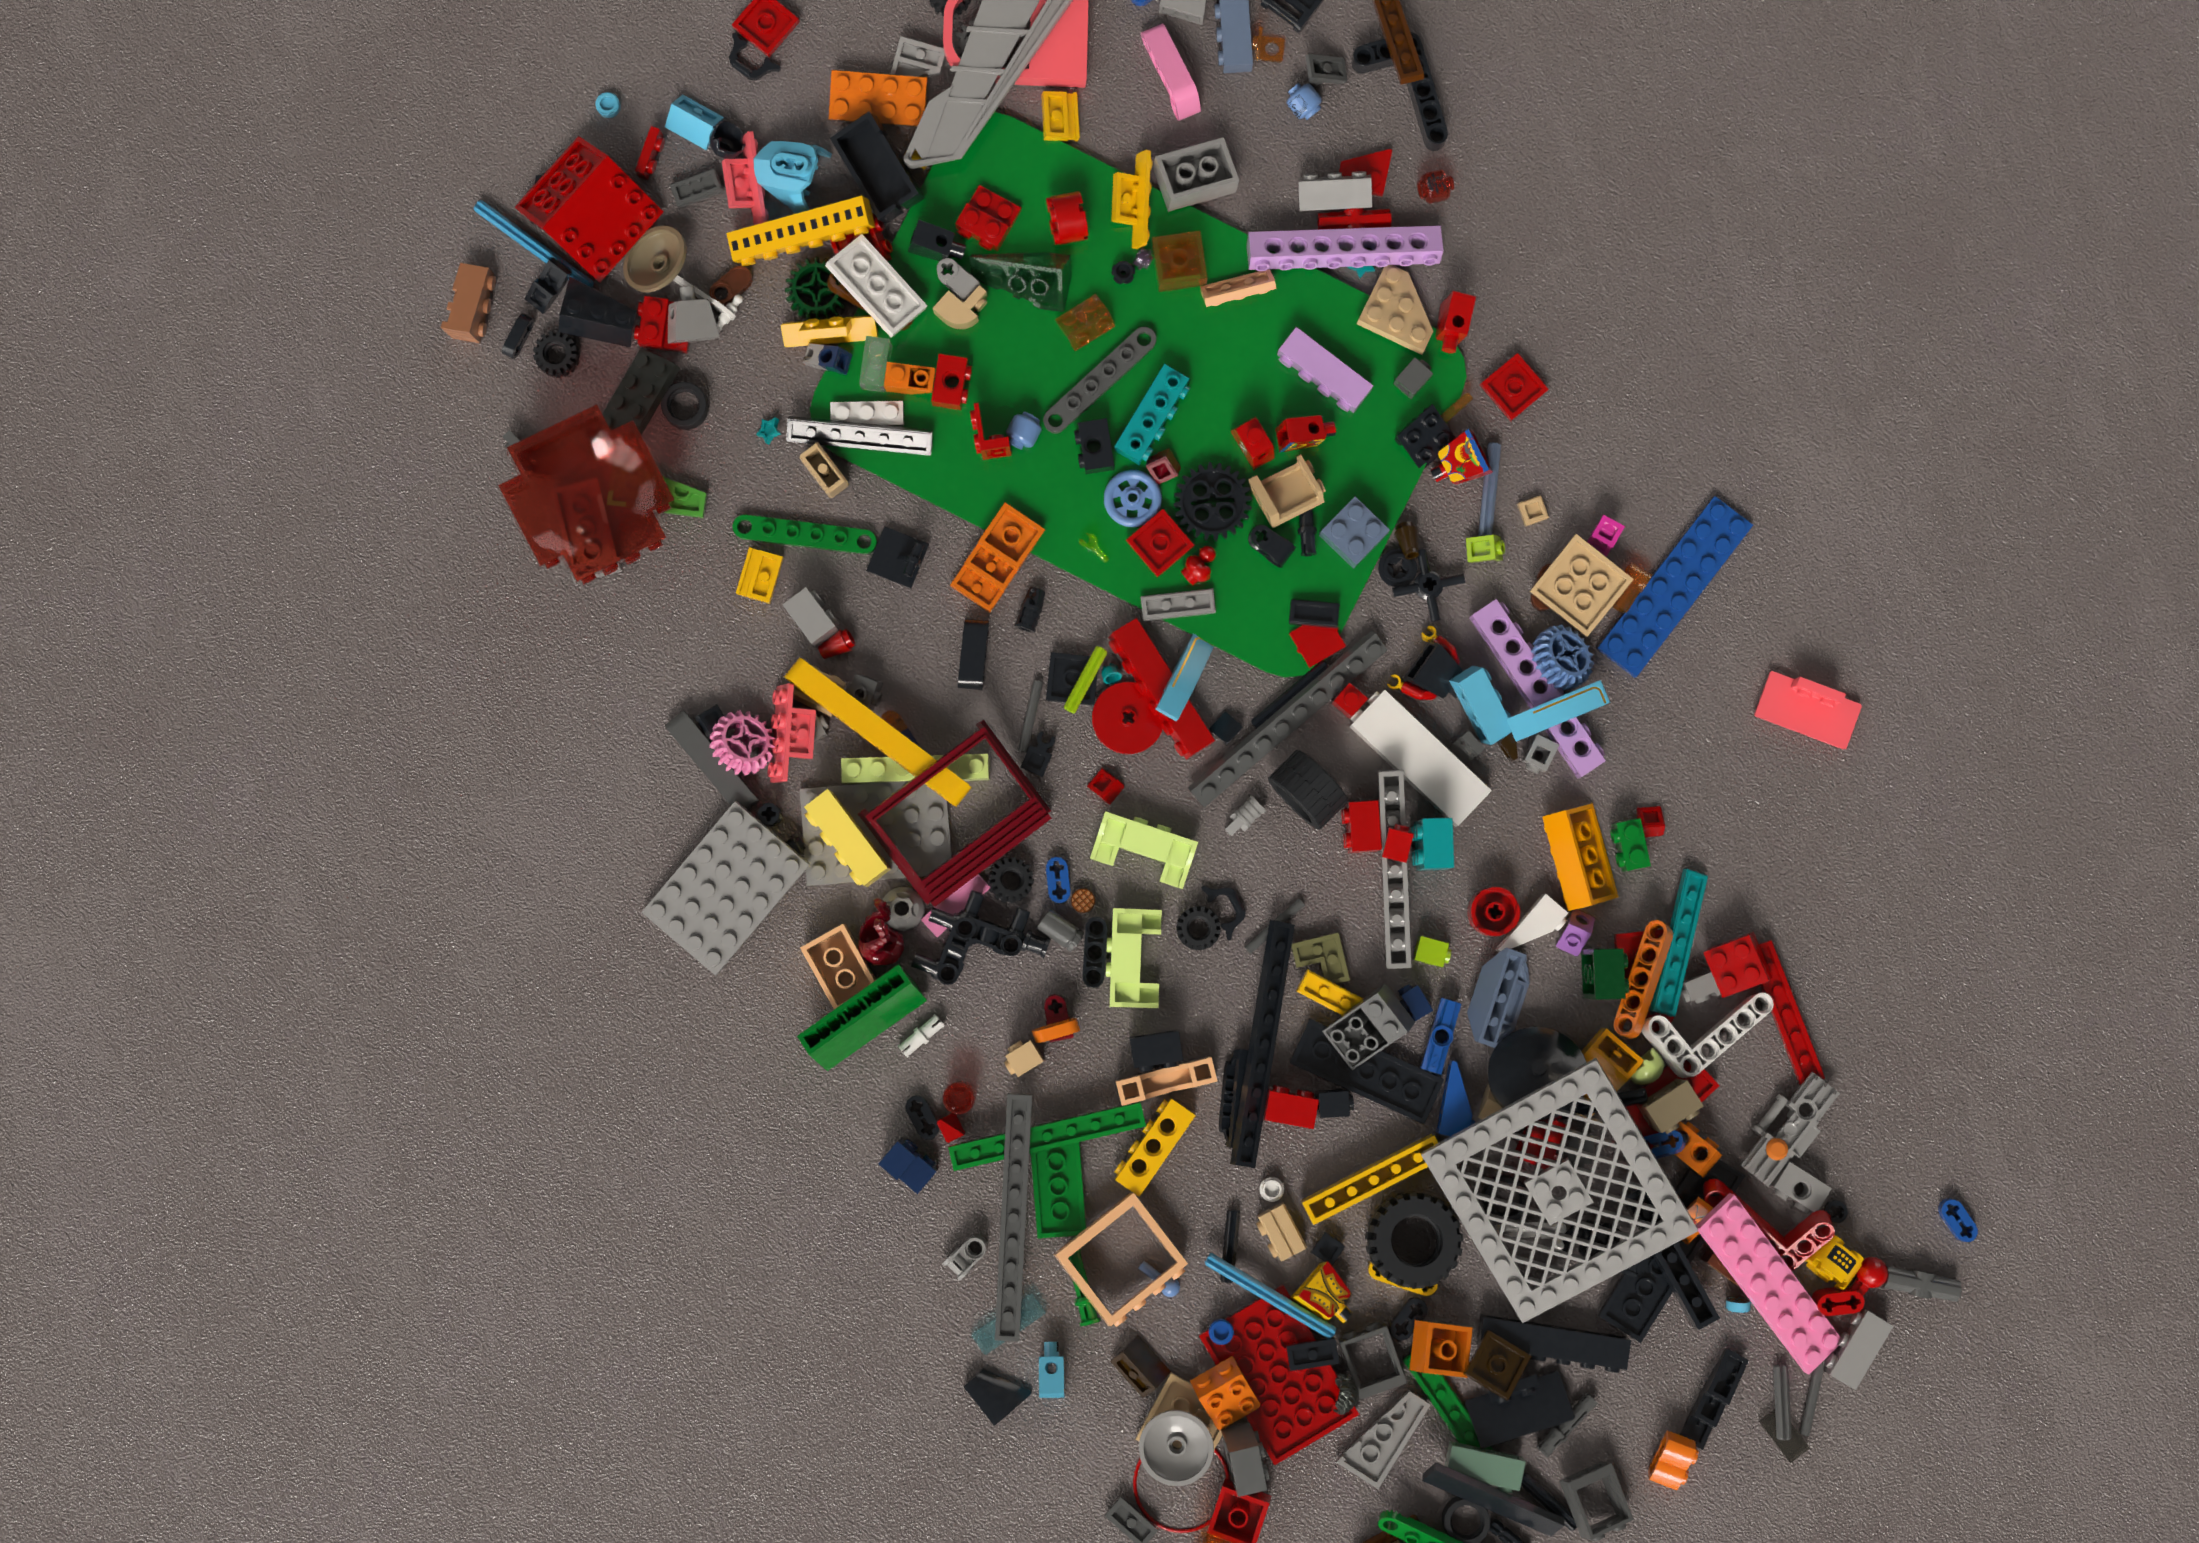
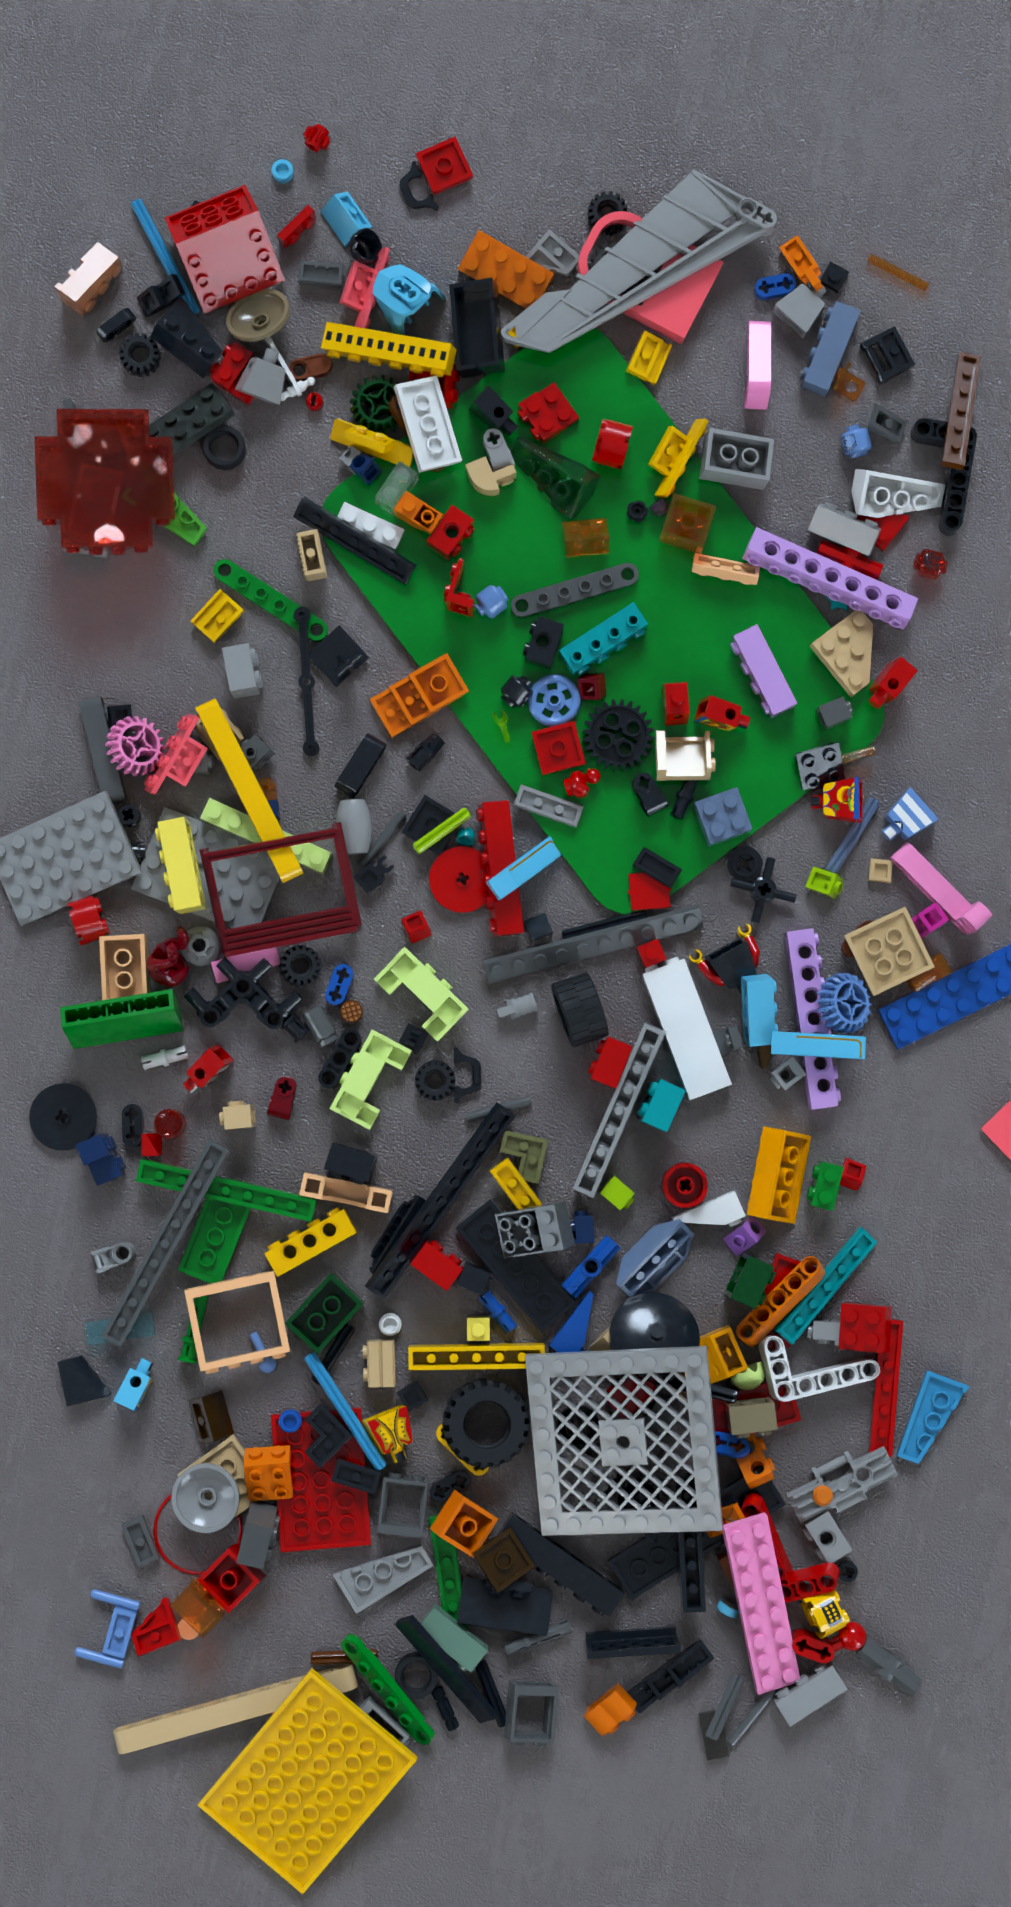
camera: 20 degrees right, 0 degrees up
(626, 55) = (316, 137): none -> red gear
(756, 316) = (318, 402): none -> red hinge
(769, 430) = (283, 501): teal piece -> none
(779, 936) = (87, 919): none -> red brick
(837, 644) = (253, 703): red cone -> none
(844, 535) = (302, 616): none -> black piece
(849, 1162) = (47, 1108): none -> black piece
(972, 1018) = (213, 1063): none -> red torso
(998, 714) = (356, 825): none -> light grey piece
(1055, 1030) = (275, 1106): orange beam -> none
(1092, 506) = (516, 691): none -> black head
(1156, 896) = (413, 1037): none -> black tile
(1202, 1209) = (324, 1312): none -> dark green brick
(1269, 1327) = (332, 1435): none -> black plate
(1348, 1394) = (368, 1524): pearl dark grey hair -> none
(1360, 138) = (887, 494): none -> white wedge
(1360, 1150) = (478, 1328): none -> light yellow brick
(1371, 1125) = (497, 1311): none -> blue pin
(1398, 843) = (631, 1089): red brick -> none
(1407, 537) = (764, 844): dark brown cone -> none
(1514, 387) = (914, 761): red plate -> none
(1534, 444) = (908, 816): none -> torso
(1591, 499) = (936, 888): none -> bright pink beam
(1661, 1384) = (632, 1642): none -> black fence
(1840, 1013) = (931, 1408): none -> dark azure wing
(1962, 1216) = (950, 1628): blue beam -> none

